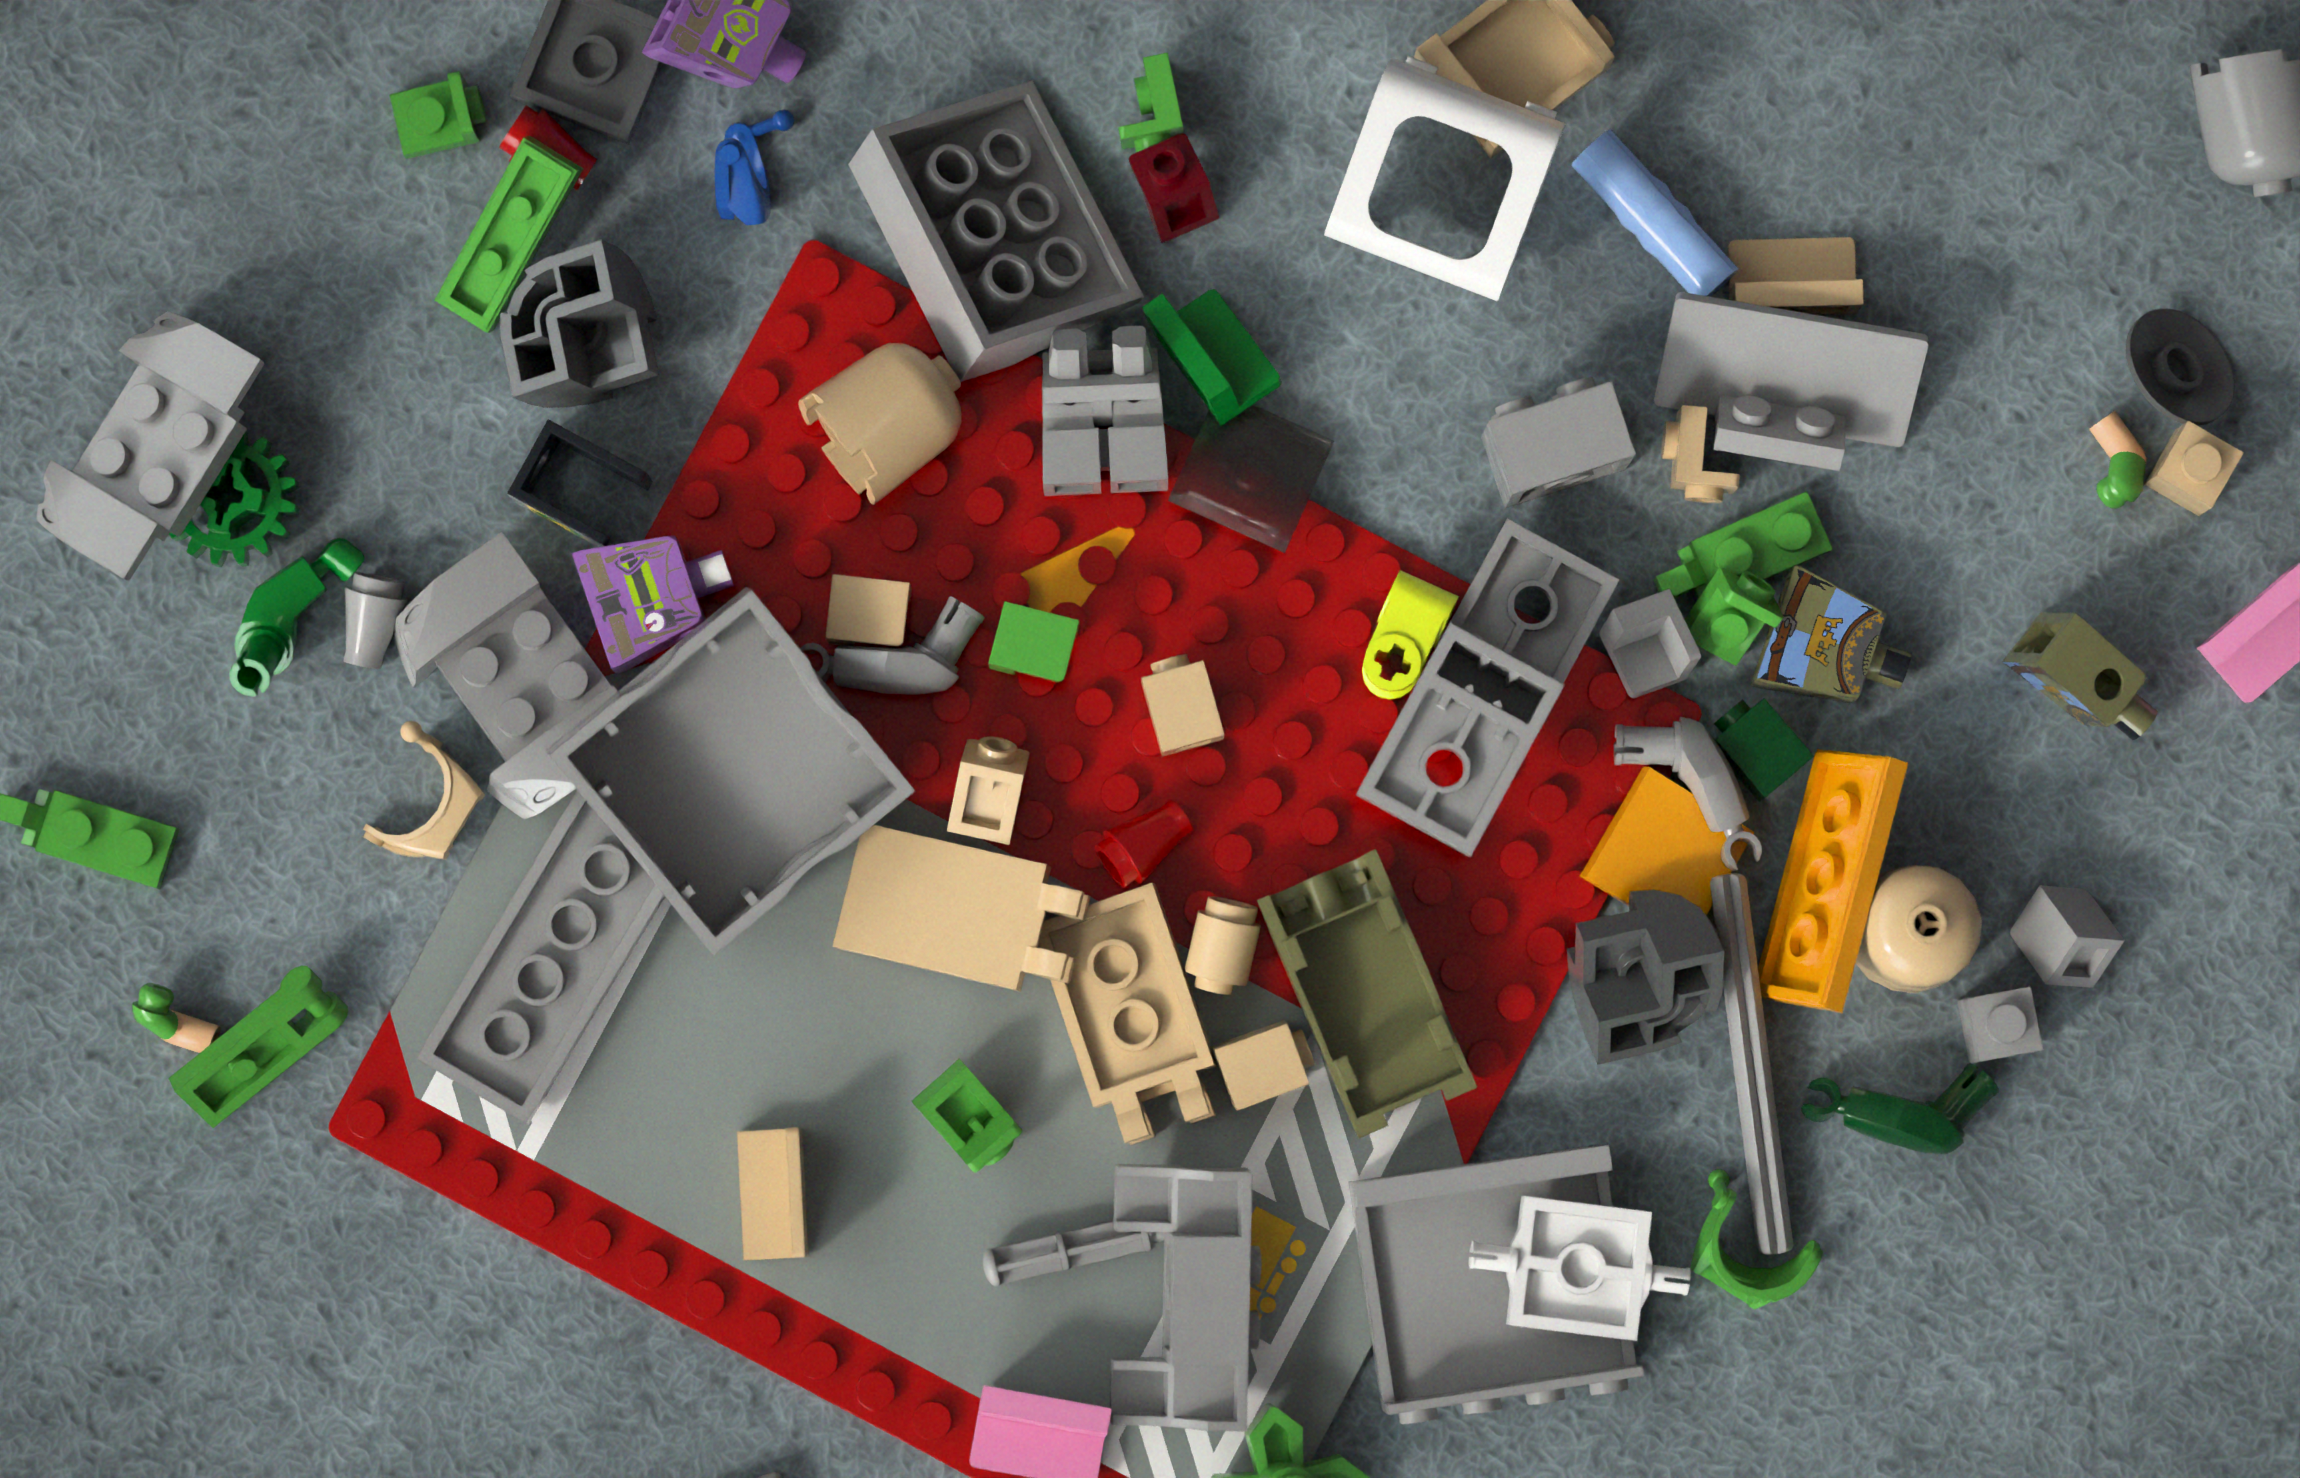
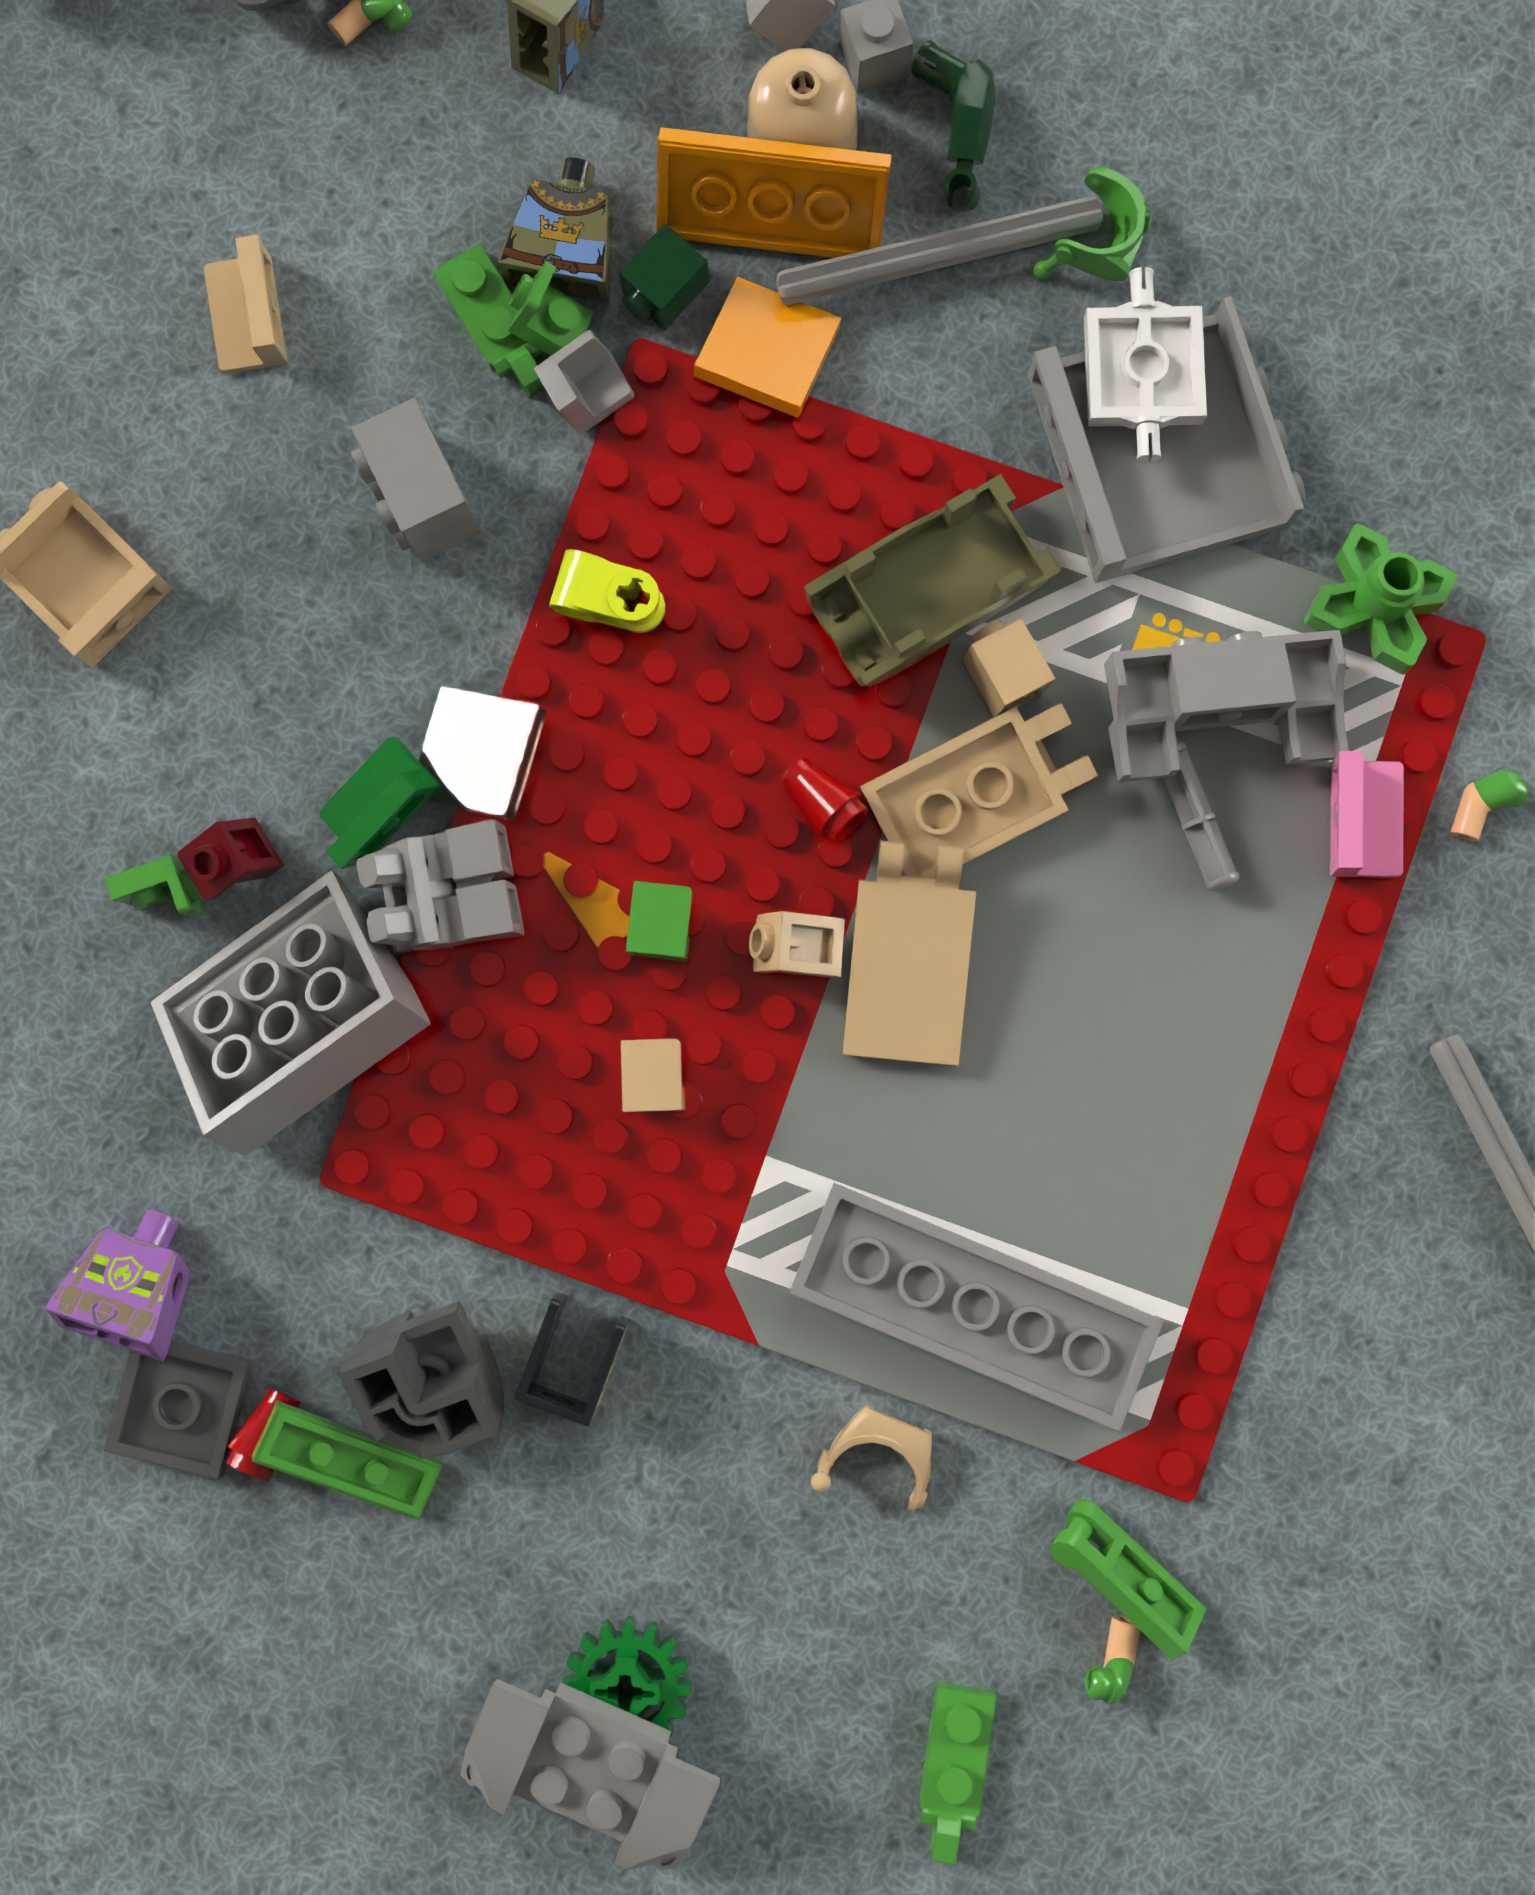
camera: 90 degrees left, 0 degrees up
(270, 620) = (732, 1627): green arm -> none
(370, 617) = (717, 1533): light grey cone -> none
(438, 116) = (247, 1542): bright green bracket -> none
(507, 664) = (755, 1389): light grey piece -> none
(647, 595) = (664, 1281): torso -> none
(729, 770) = (817, 1181): light grey tile -> none
(741, 173) = (263, 1254): blue helmet -> none
(773, 1194) = (1189, 1086): tan panel -> none
(886, 416) = (470, 1085): tan cylinder -> none
(905, 668) = (699, 1034): light grey arm -> none
(968, 1117) = (1095, 920): bright green bracket -> none
(1181, 705) = (697, 781): tan brick -> none
(1223, 945) = (907, 715): tan brick -> none
(1488, 688) = (646, 506): light grey bracket -> none
(1525, 133) = (112, 653): white piece -> none
(1644, 974) = (877, 344): dark grey brick -> none
(1654, 215) = (205, 432): light blue axle -> none
(1684, 445) = (413, 375): tan bracket -> none
(1701, 767) = (689, 318): light grey arm -> none
(1789, 379) = (332, 294): light grey bracket -> none

